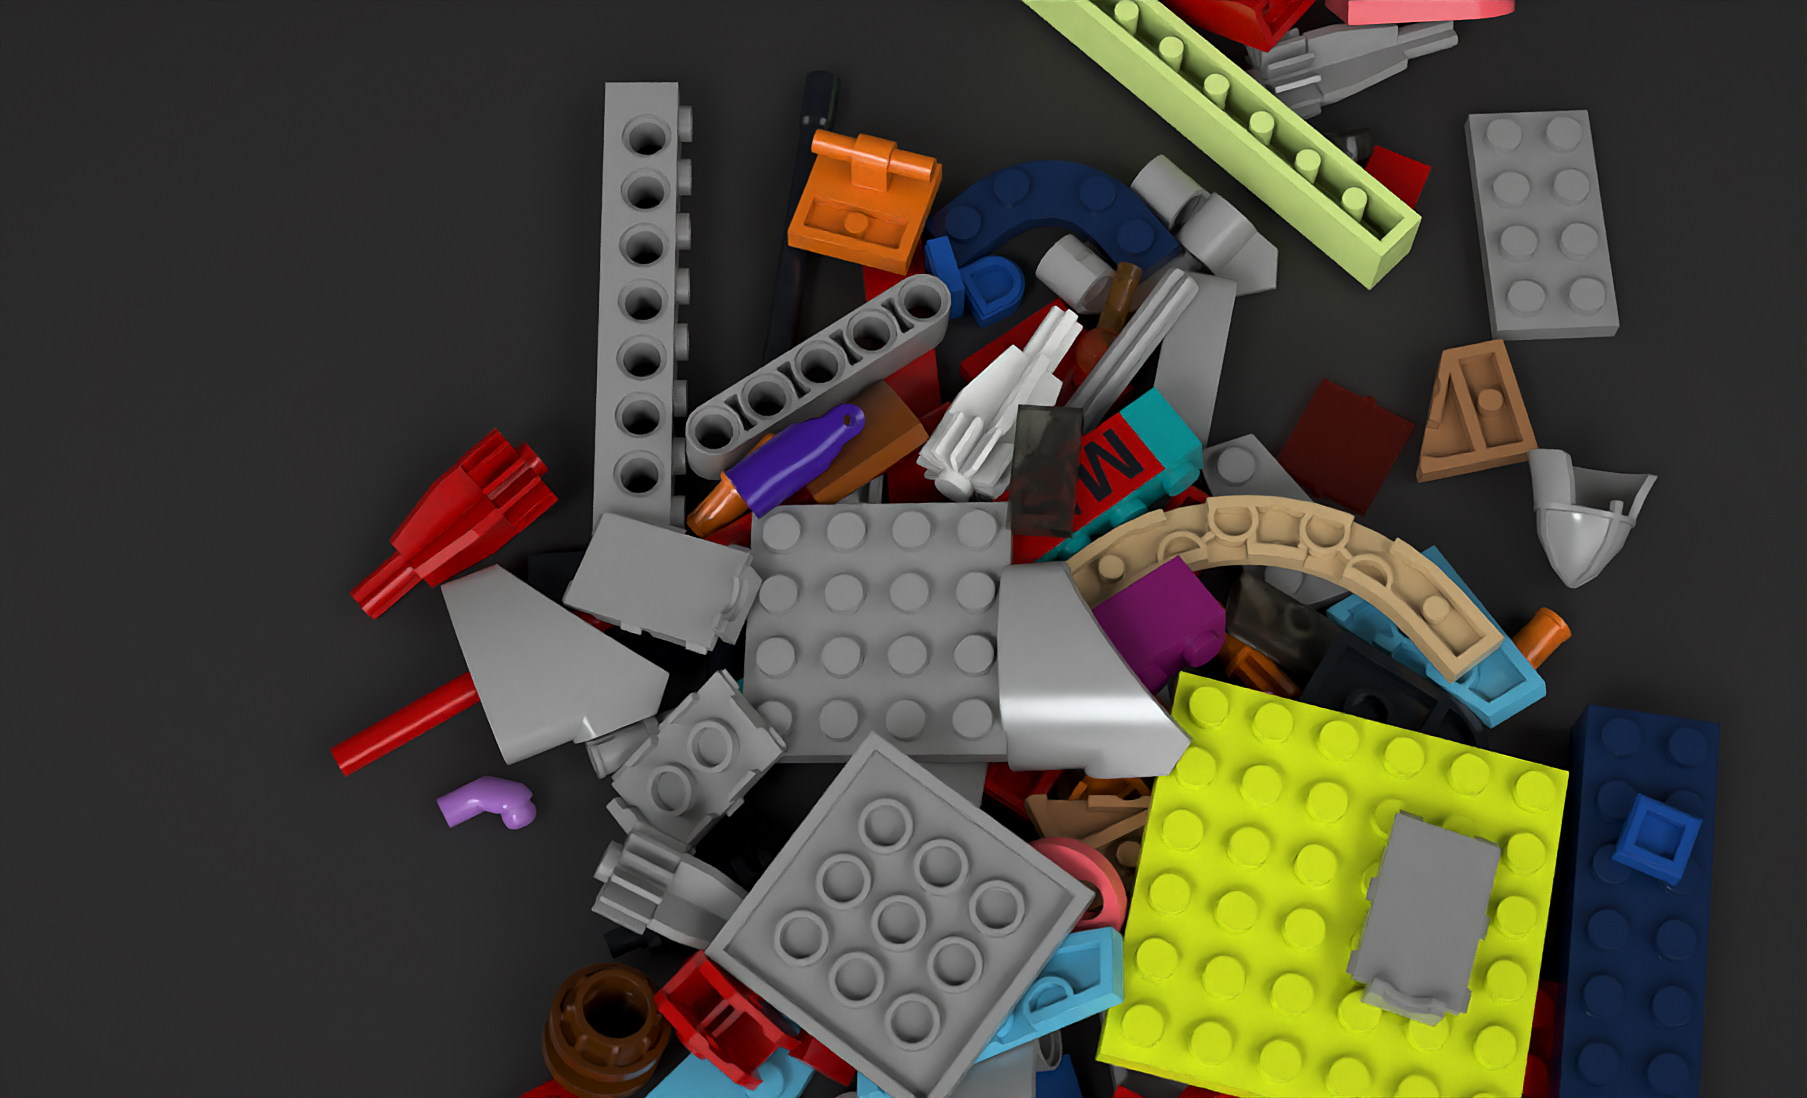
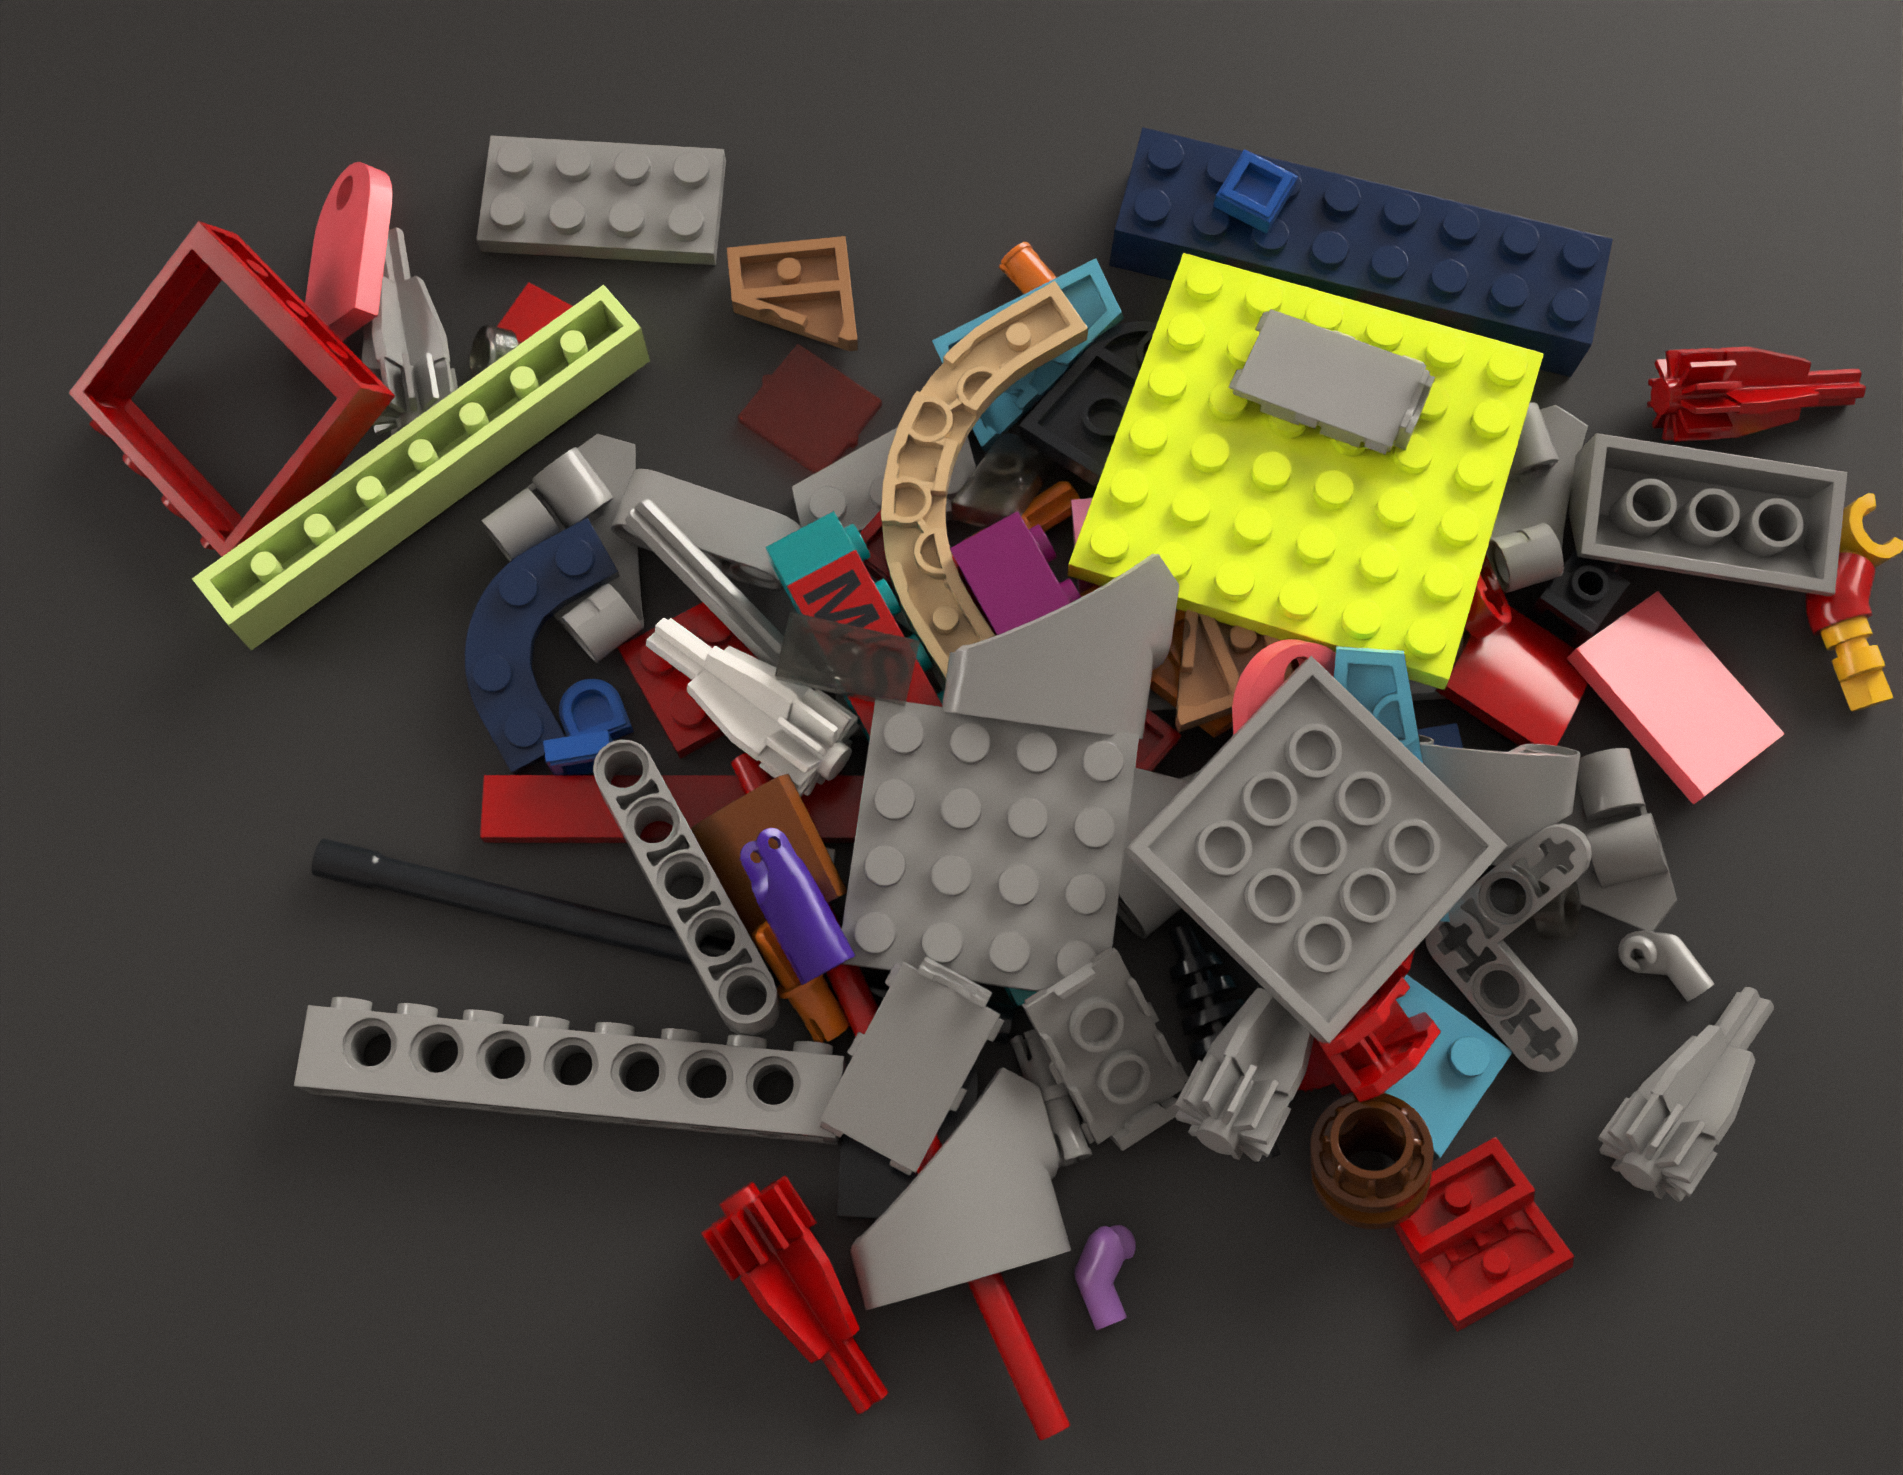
camera: 85 degrees left, 5 degrees up
(865, 201) = (489, 821): orange plate -> none
(1111, 321) = (679, 604): clear orange bar -> none
(1582, 513) = (914, 206): light grey helmet -> none

